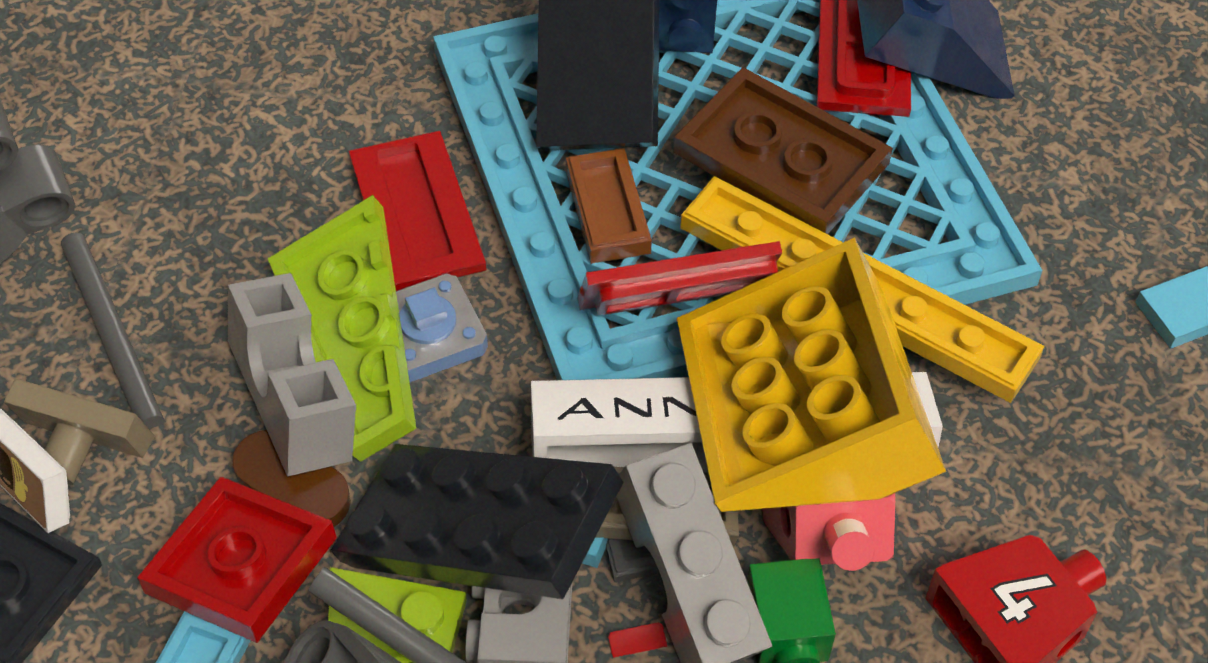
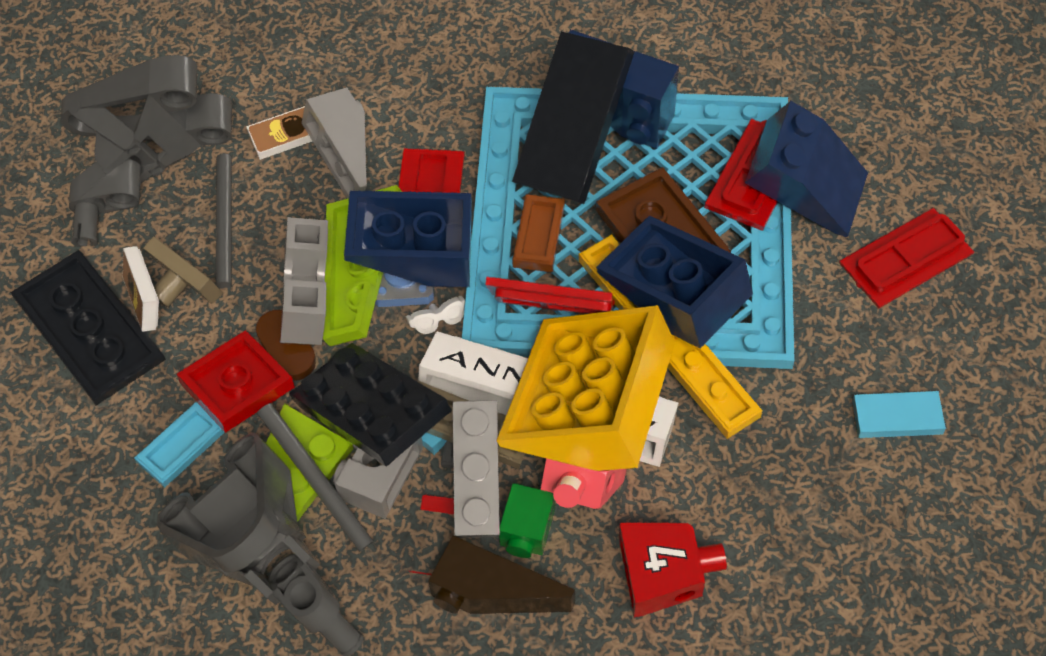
camera: 25 degrees right, 5 degrees up
(158, 176) = (279, 133): none -> tile
(250, 161) = (338, 132): none -> light grey slope
(436, 254) = (412, 235): none -> dark blue slope
(496, 376) = (427, 320): none -> white piece
(841, 186) = (683, 275): none -> dark blue slope
(1102, 100) = (907, 257): none -> red piece

